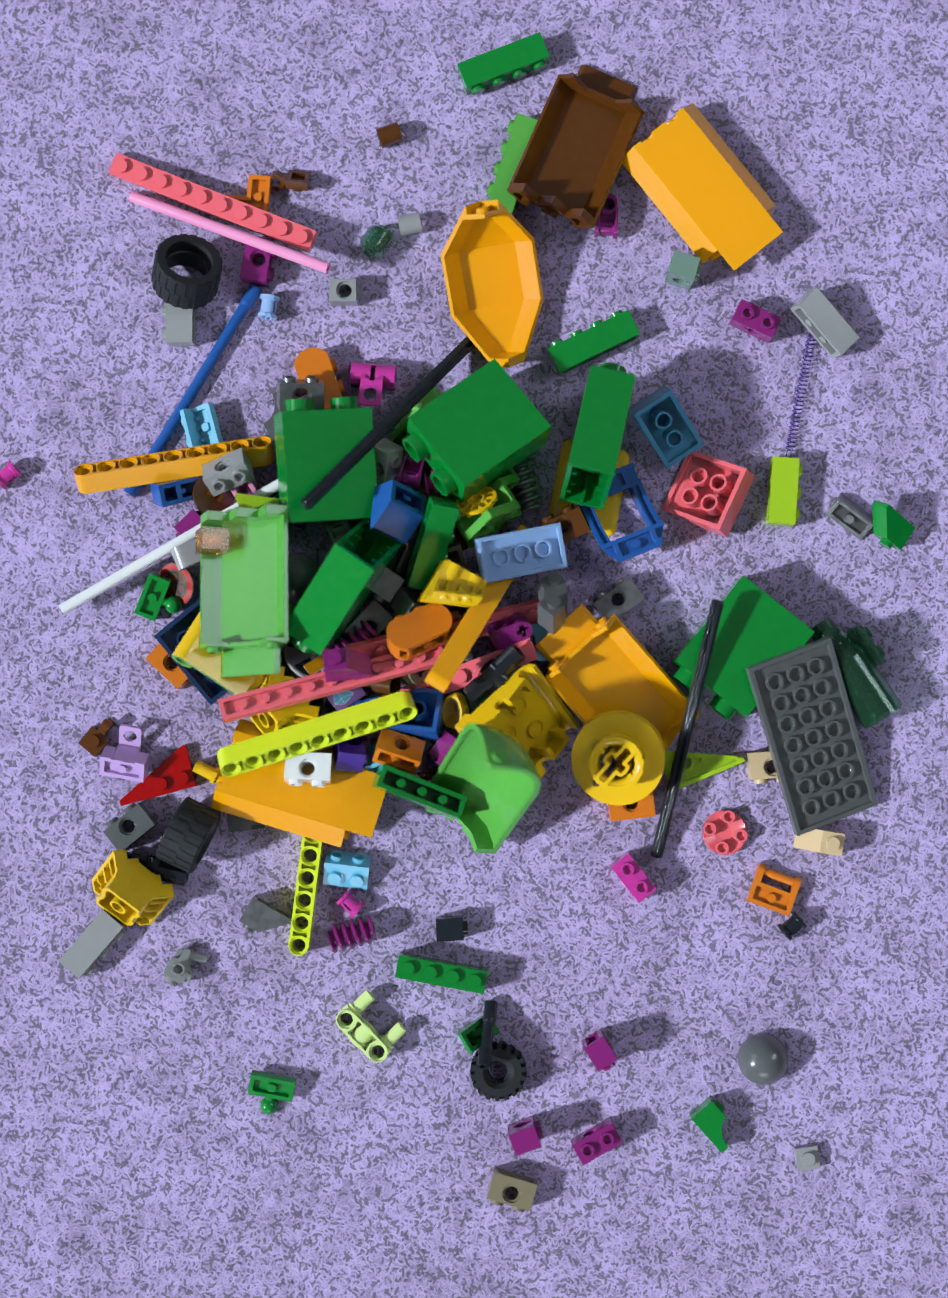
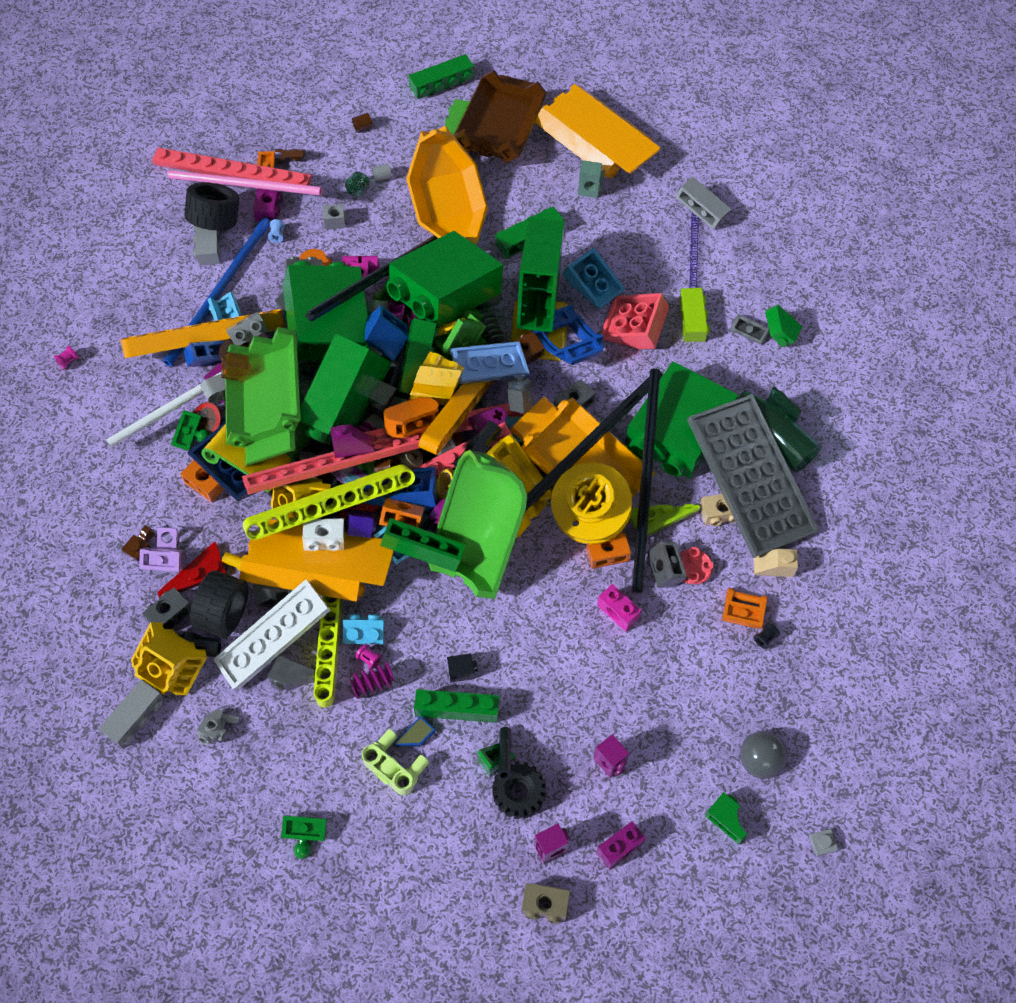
camera: 15 degrees left, 25 degrees down
(245, 874) = (271, 635): none -> white plate
(395, 996) = (416, 734): none -> olive tile
(608, 219) = (529, 156): magenta piece -> none
(628, 675) = (580, 450): none -> black axle
(694, 832) = (667, 564): none -> flat silver brick
(755, 321) = (650, 208): magenta brick -> none

